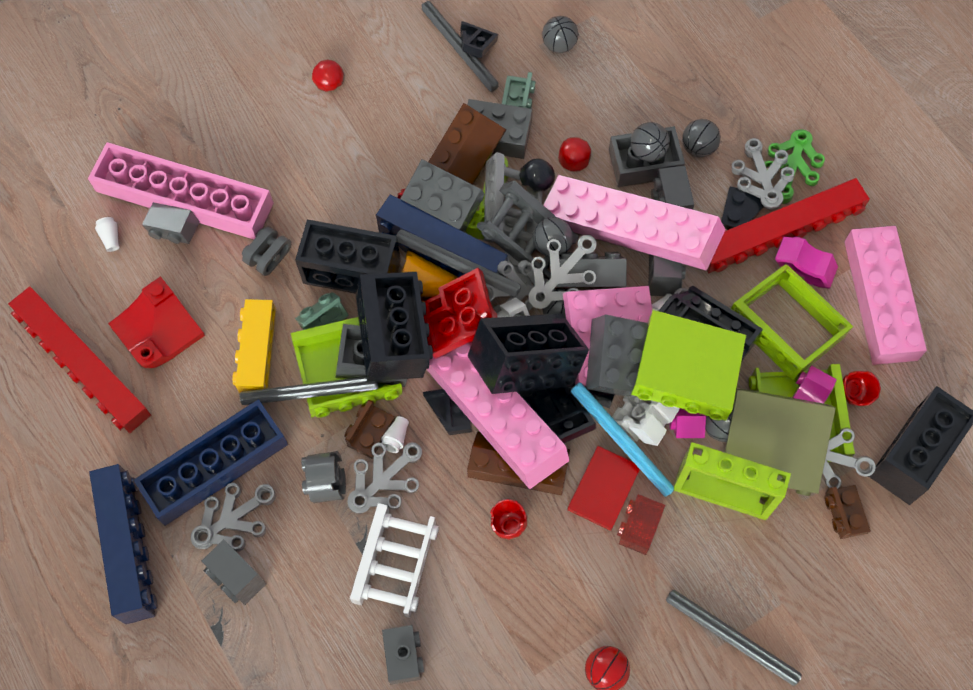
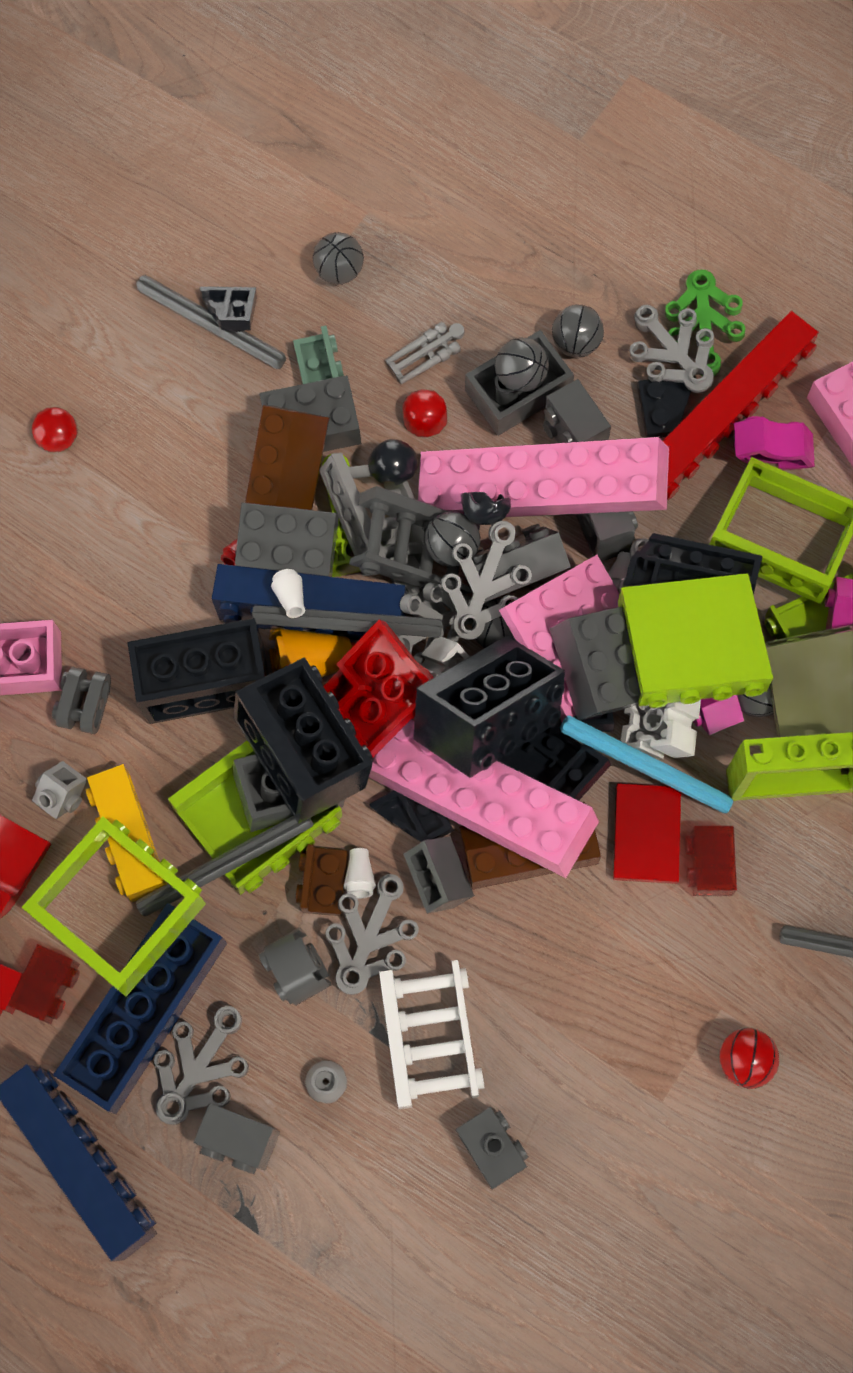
camera: 20 degrees left, 5 degrees up
(157, 421) = (44, 985): none -> clear red brick
(224, 301) = (59, 790): none -> light grey brick
(235, 422) = (156, 944): none -> lime window
(318, 566) = (334, 1089): none -> light grey plate
(323, 312) = (197, 754): sand green bracket -> none
(427, 228) = (289, 591): none -> white cone
(447, 456) = (438, 874): none -> dark grey brick
(508, 519) = (549, 923): red hair -> none
(581, 224) = (482, 509): none -> black hair
(619, 109) = (455, 332): none -> light grey piece

